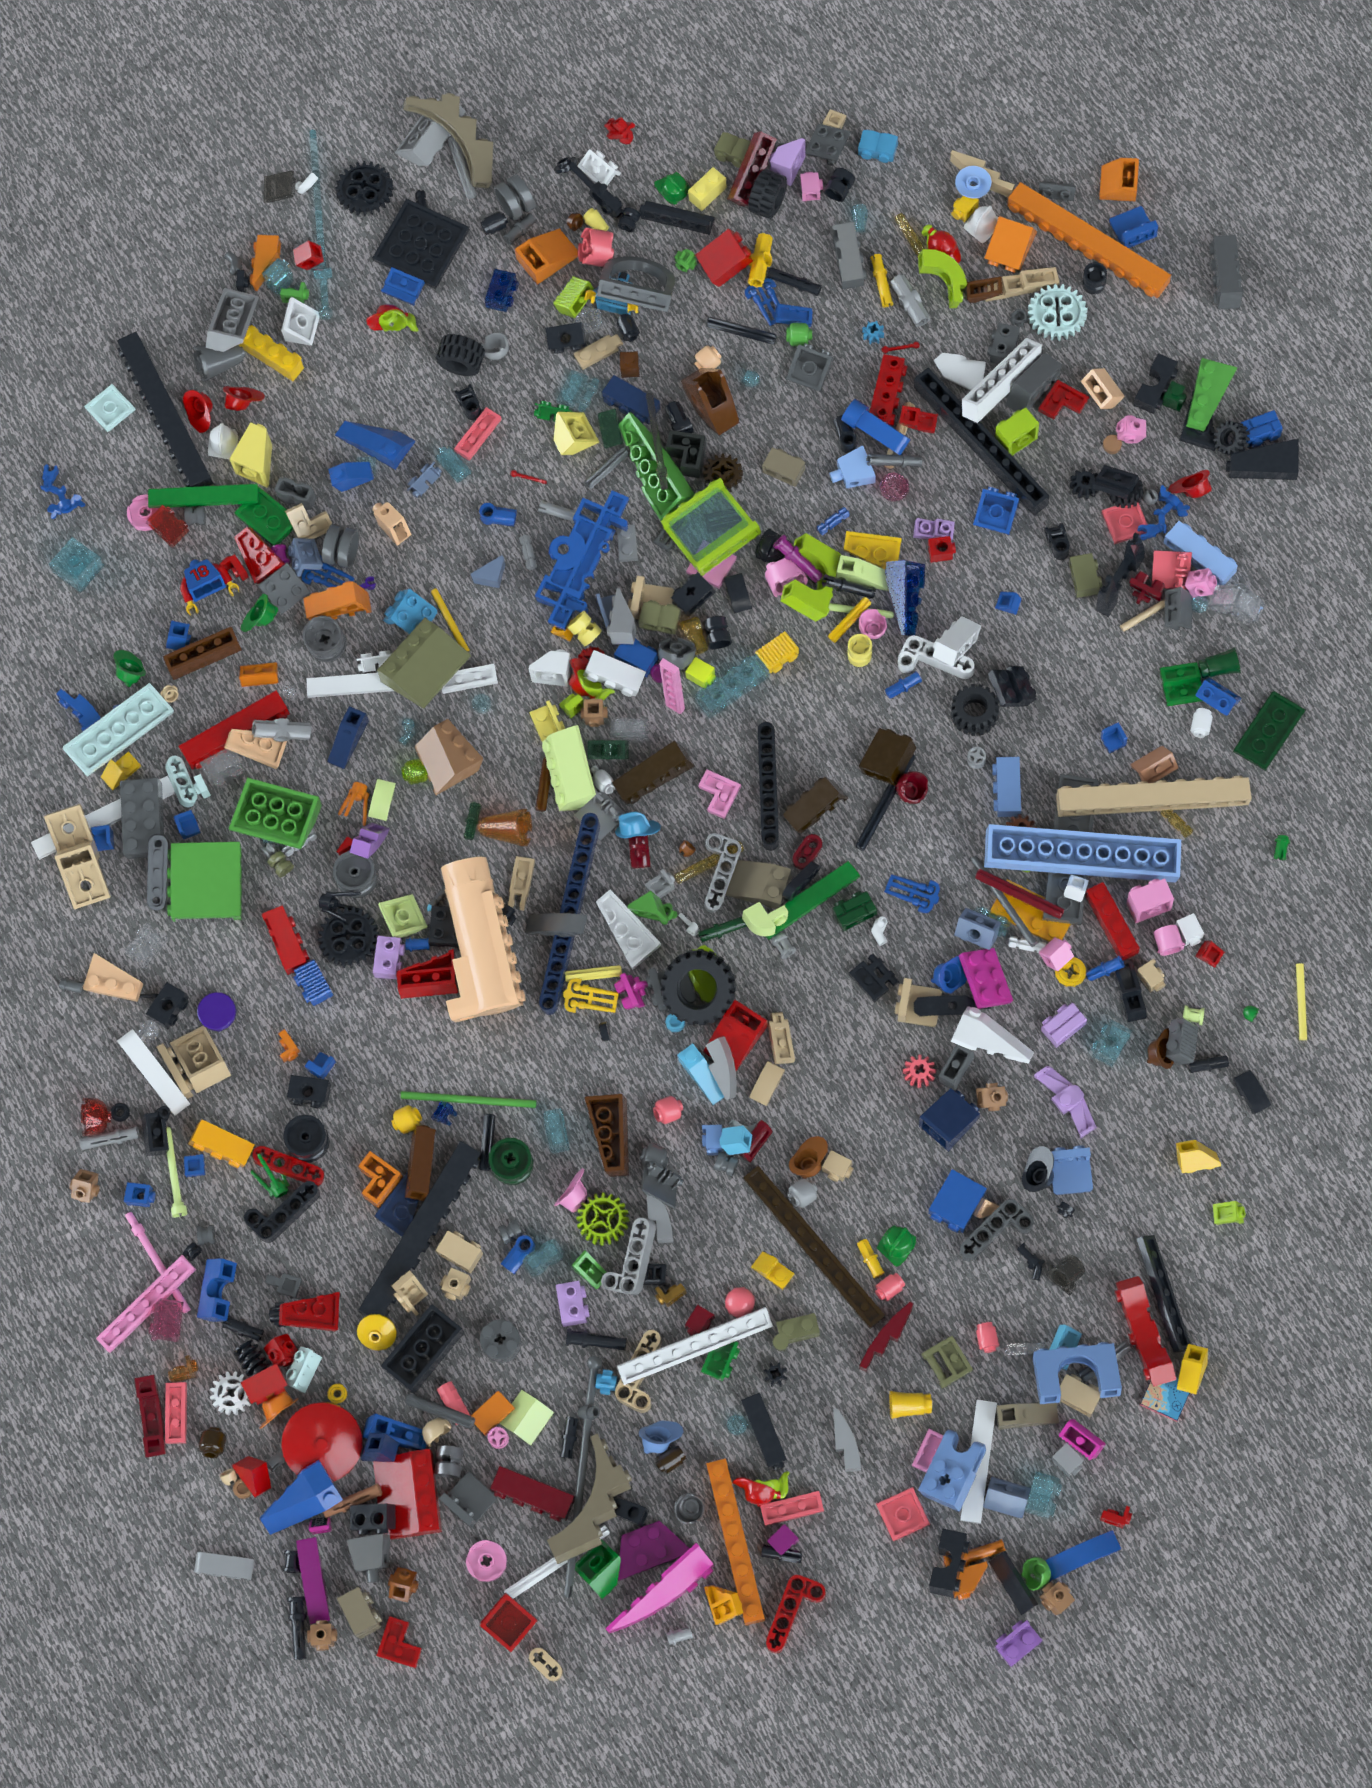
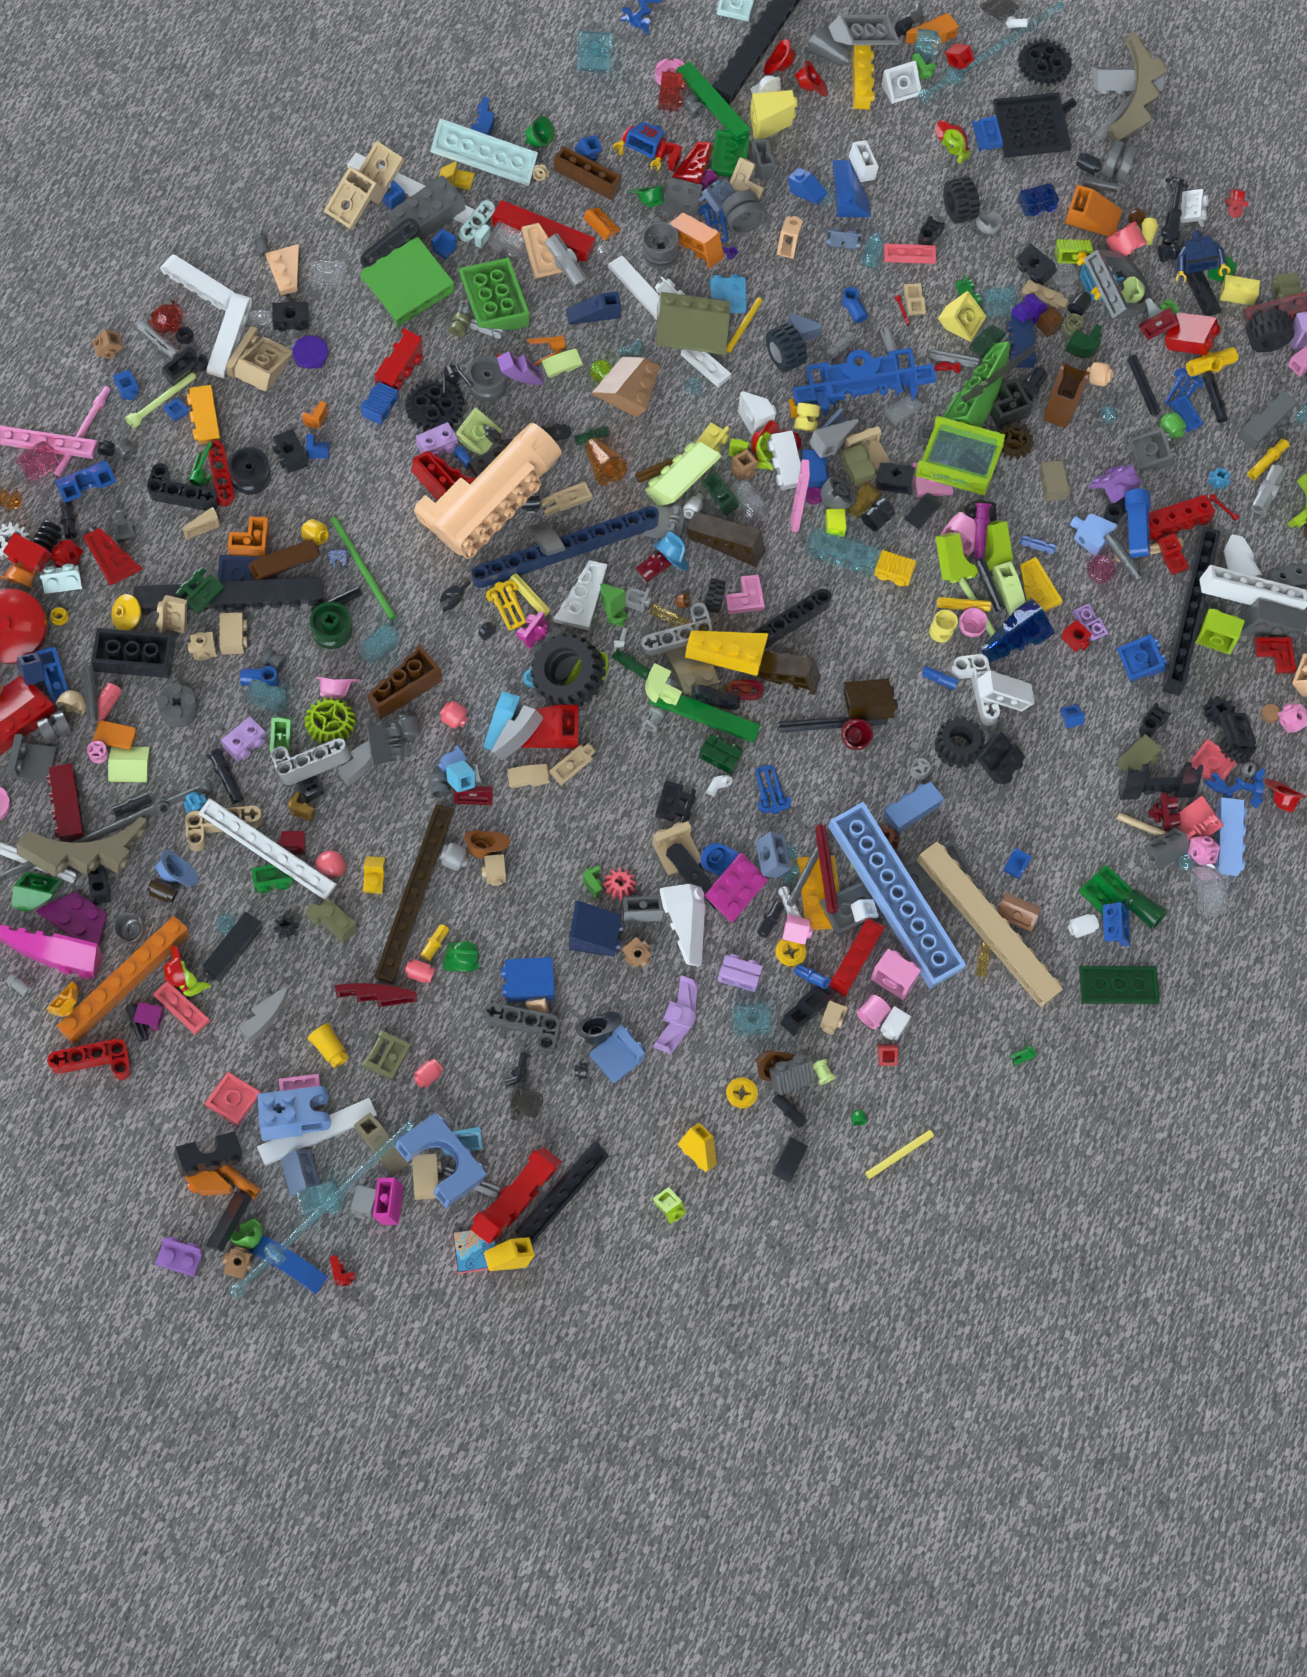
camera: 40 degrees right, 5 degrees down
(74, 1065) = (197, 281): none -> white beam
(331, 1207) = (202, 524): none -> tan slope
(359, 409) = (863, 161): none -> white brick
(410, 1253) = (203, 594): none -> dark green plate
(448, 854) = (494, 436): none -> black piece
(504, 600) = (786, 347): none -> black wheel
(526, 461) = (914, 299): none -> tan slope
(550, 1035) = (455, 593): none -> black hand
(608, 373) = (1030, 308): none -> dark purple brick
(609, 479) = (944, 366): none -> red piece
(645, 352) = (1072, 323): none -> olive wheel
(647, 276) = (1133, 290): none -> yellowish green hair
(658, 199) = (1201, 255): none -> dark blue torso
(670, 353) = (1084, 345): none -> dark green brick
(692, 276) = (1158, 320): none -> dark red piece
(704, 818) = (715, 595): none -> black tyre
(770, 840) = (728, 649): none -> yellow wedge
(821, 416) = (1117, 481): none -> medium lavender bracket
(905, 1093) = (592, 884): none -> bright green bracket
(1031, 969) = (770, 919): none -> black axle
(1070, 1559) = (276, 1255): none -> clear light blue bar
(1167, 1083) = (749, 1088): none -> yellow gear

